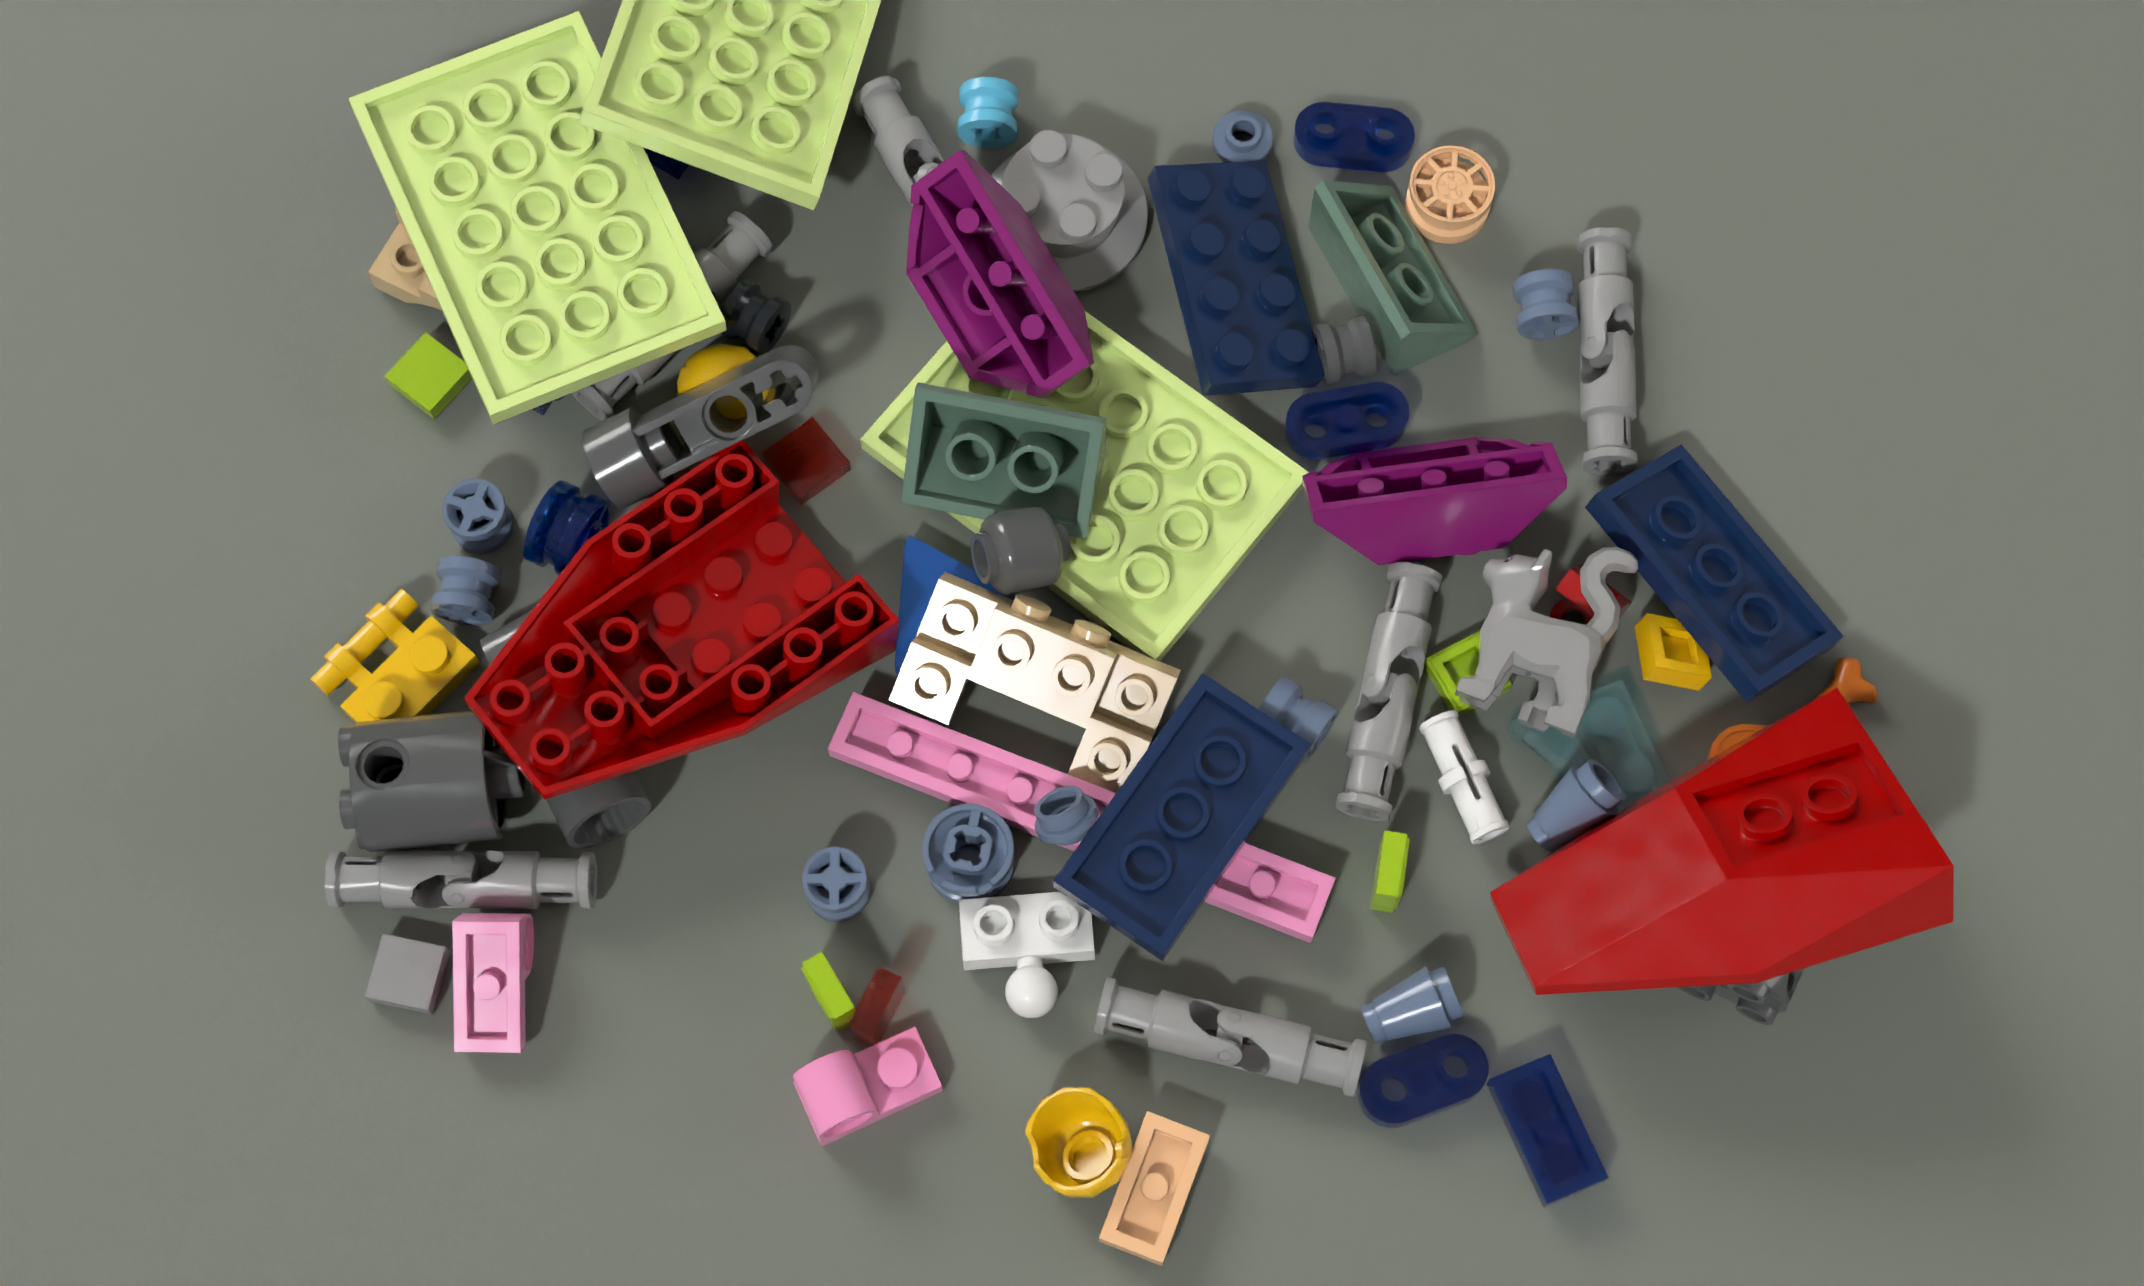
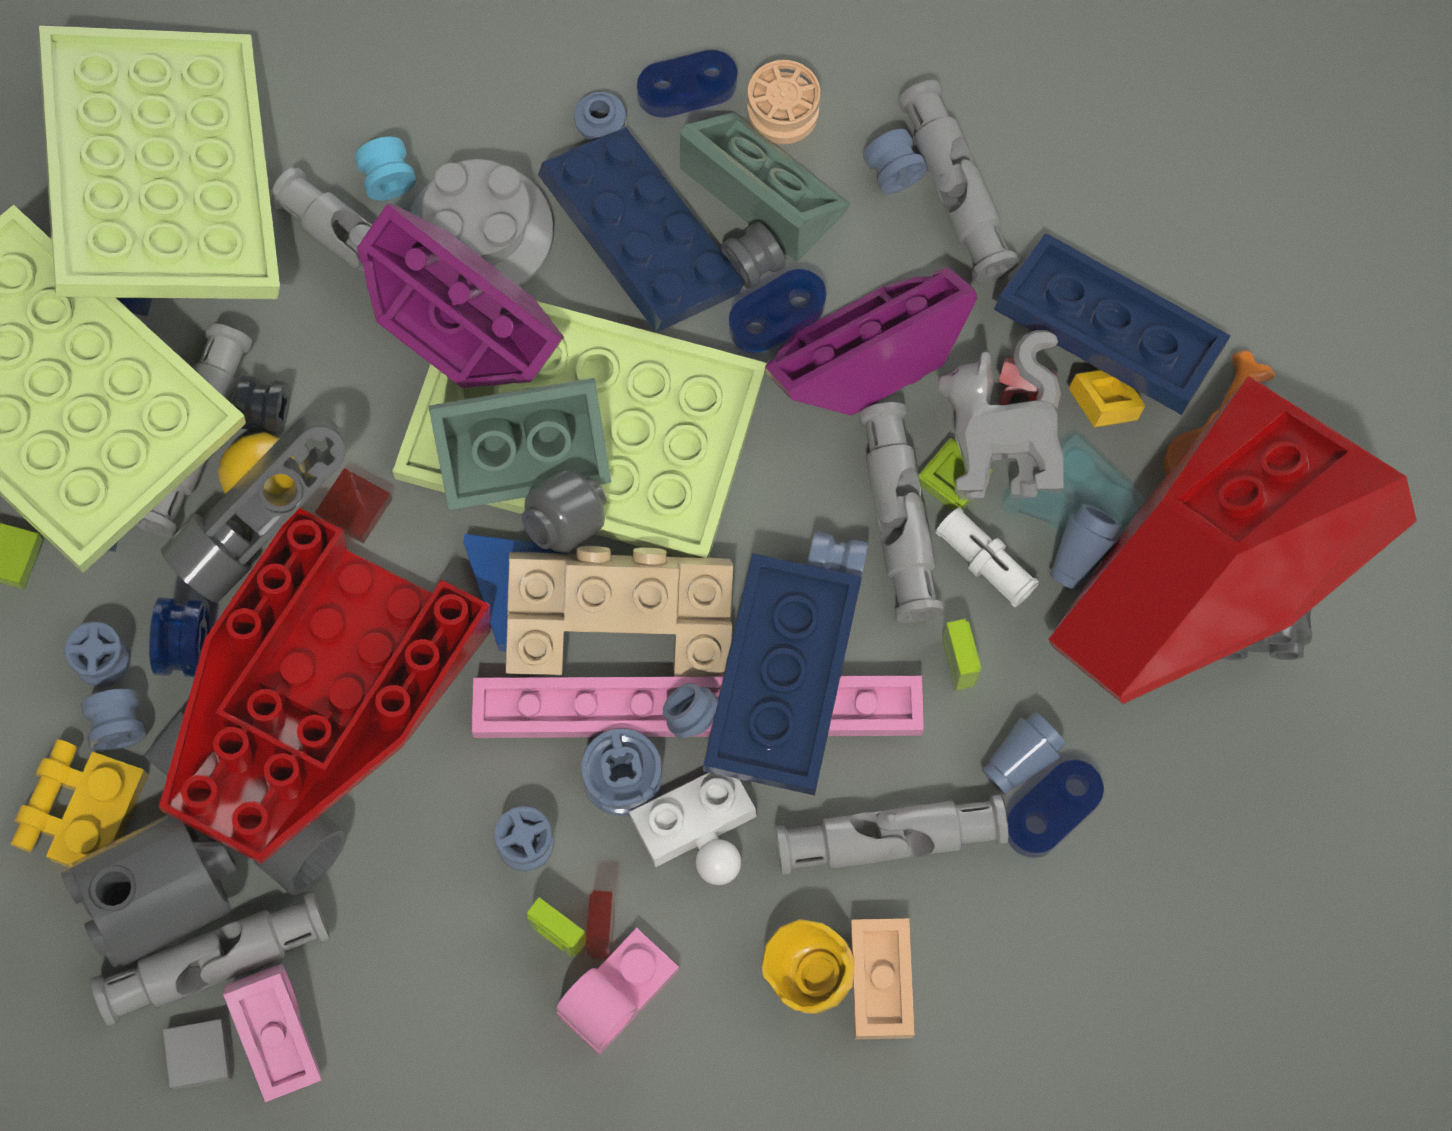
camera: 25 degrees left, 0 degrees up
(1547, 1130) = (1166, 808): clear blue plate -> none

